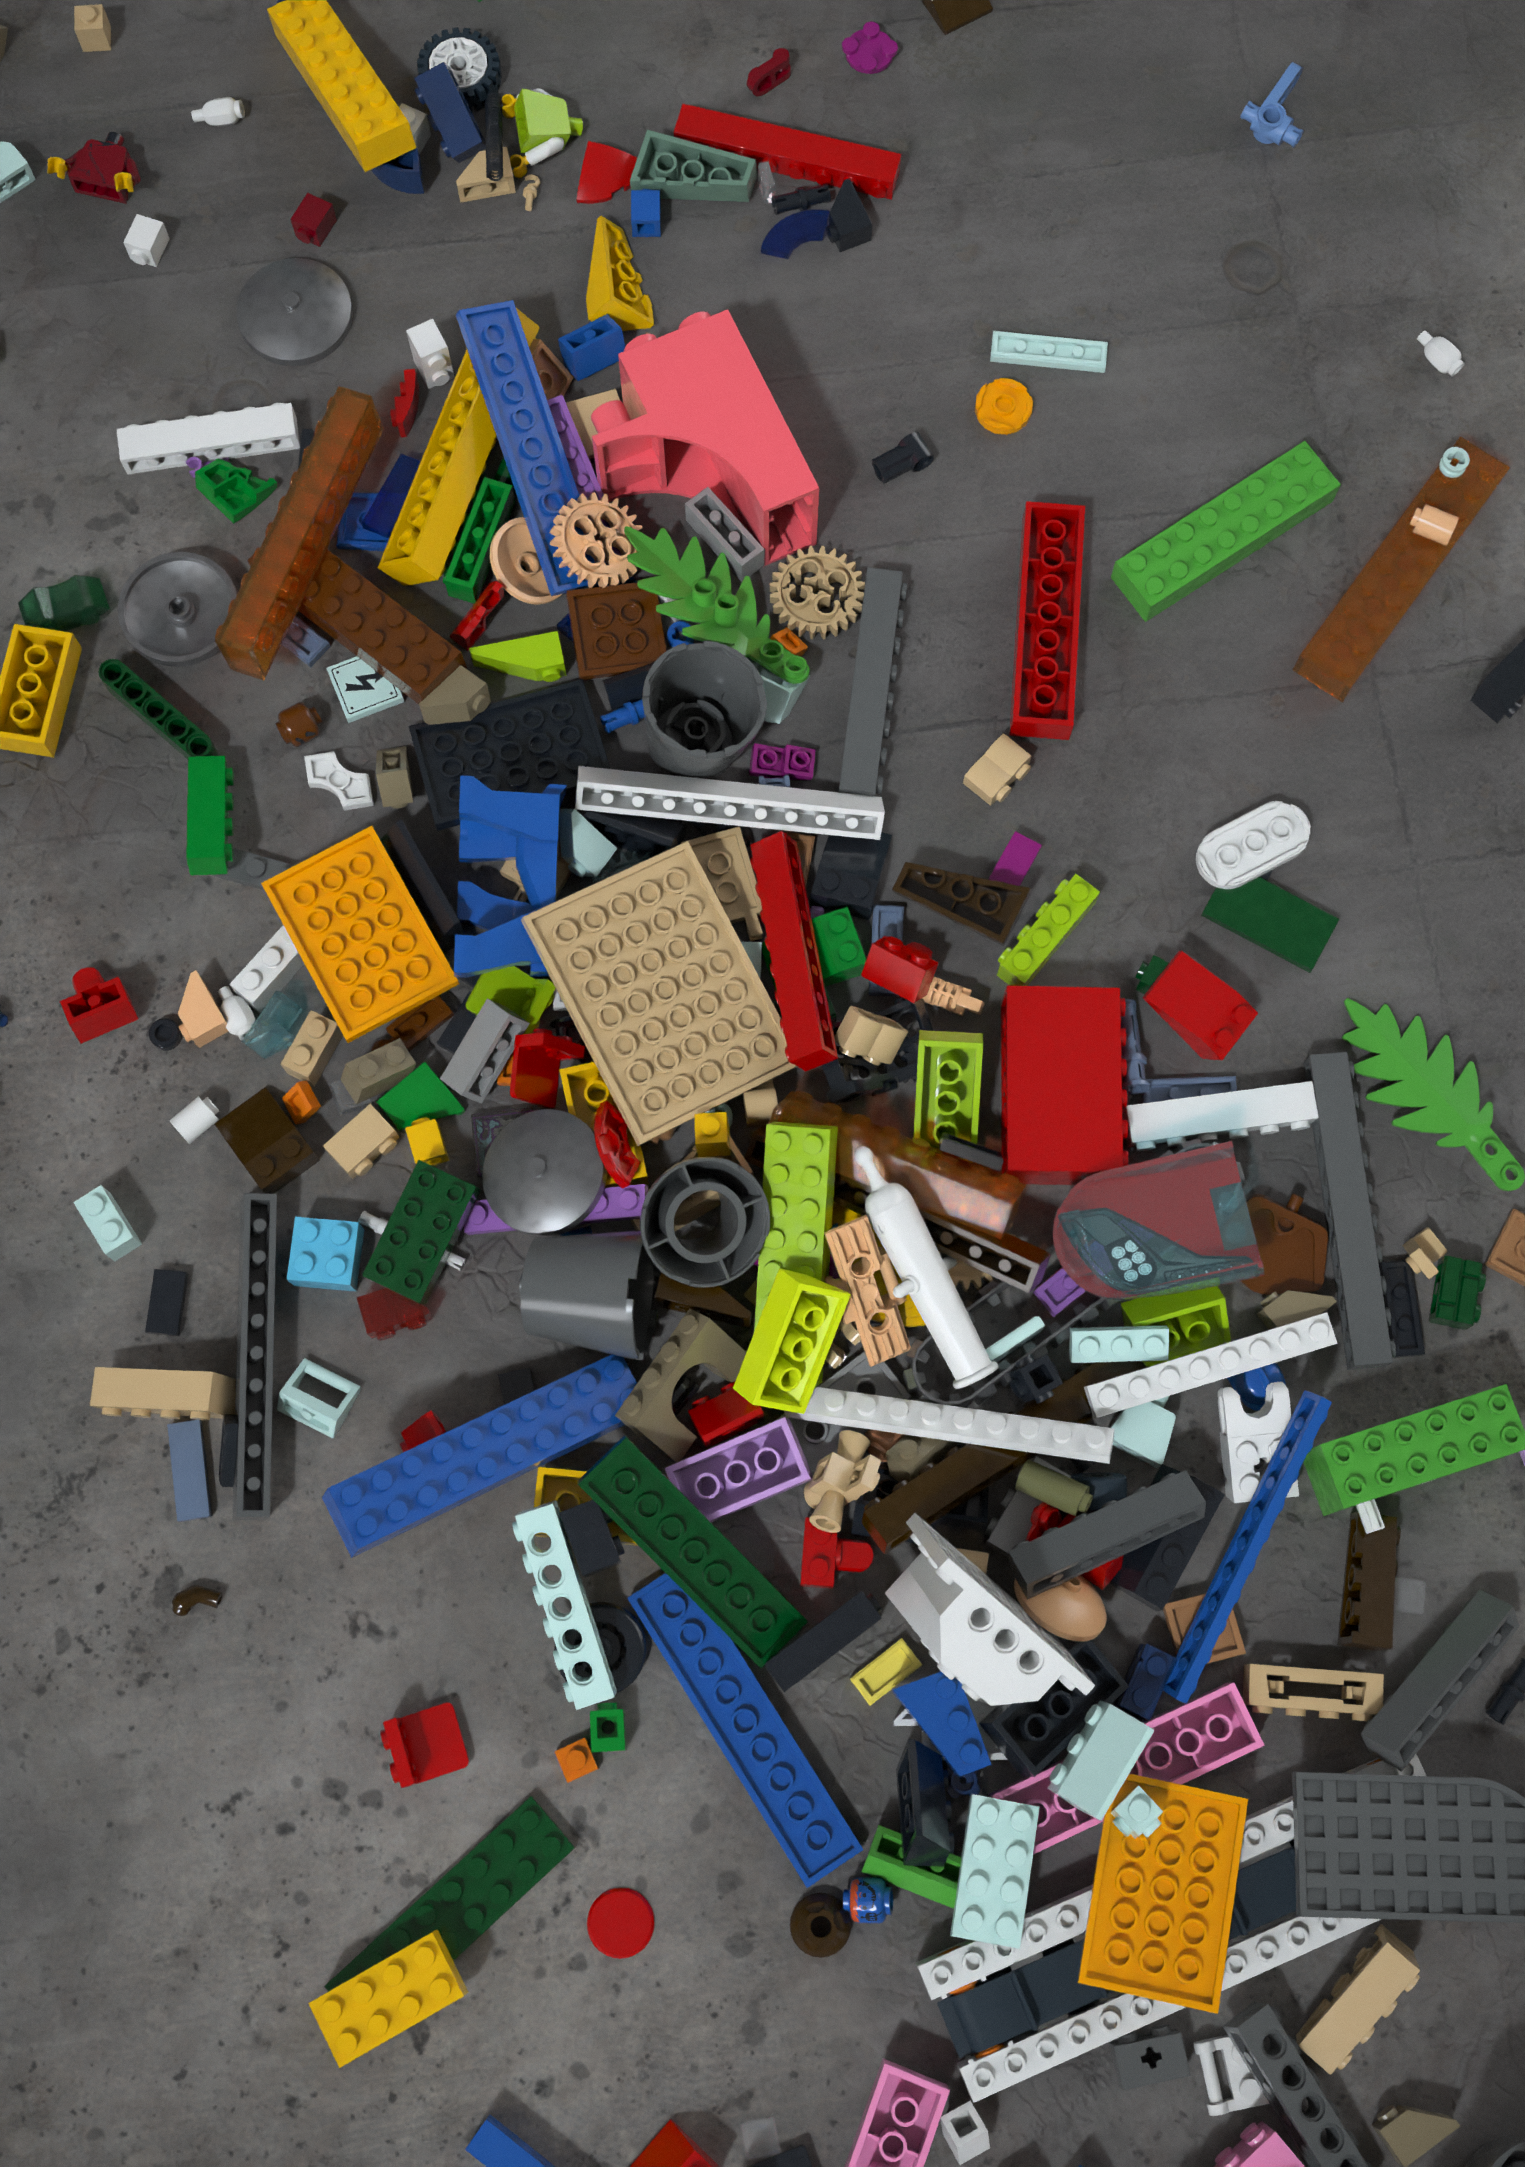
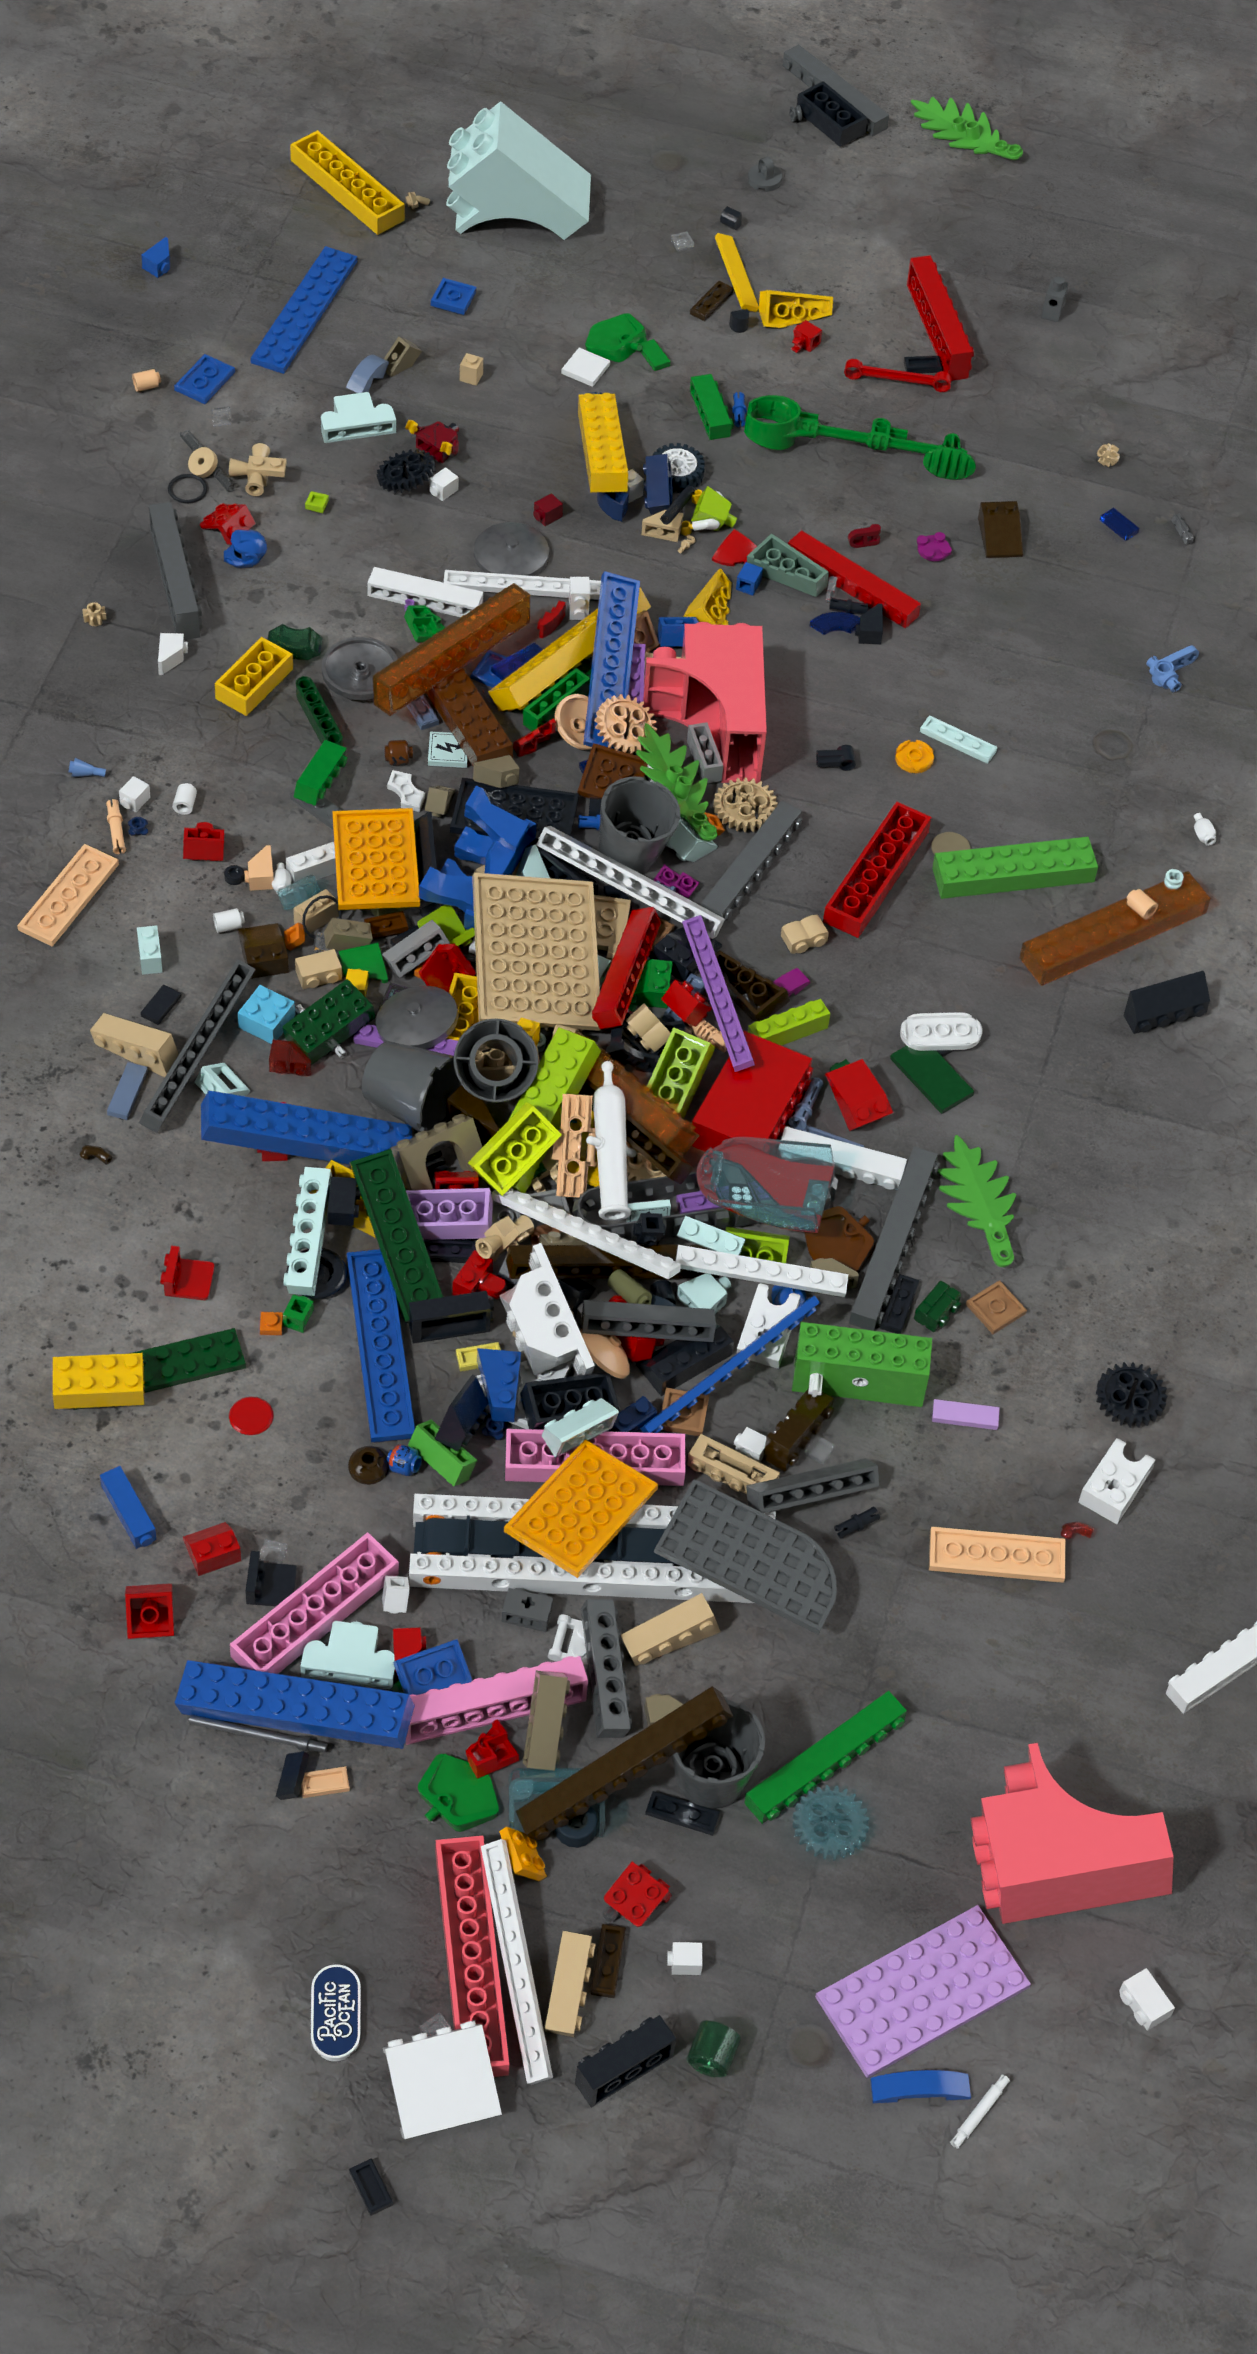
camera: 20 degrees right, 20 degrees down
(34, 941) = (184, 799): none -> white brick
(100, 231) = (393, 474): none -> black gear
(220, 112) = (523, 437): white plant -> none
(228, 1450) = (156, 1083): black tile -> none
(305, 1055) = (310, 904): none -> black piece
(338, 360) = (532, 584): none -> white plate
(528, 657) = (552, 771): lime slope -> none
(613, 1144) = (465, 1014): red tile -> none
(762, 1518) = (449, 1250): none -> black tile
(943, 941) = (718, 993): none -> medium lavender plate
(971, 1151) = (675, 1103): black tile -> none
(995, 1871) = (486, 1461): light aqua plate -> none
(1119, 531) = (949, 842): none -> dark tan piece
(1137, 1814) = (586, 1455): light aqua brick -> none
(1319, 1640) = (750, 1444): none -> white brick
(1424, 1251) = (928, 1276): tan bracket -> none

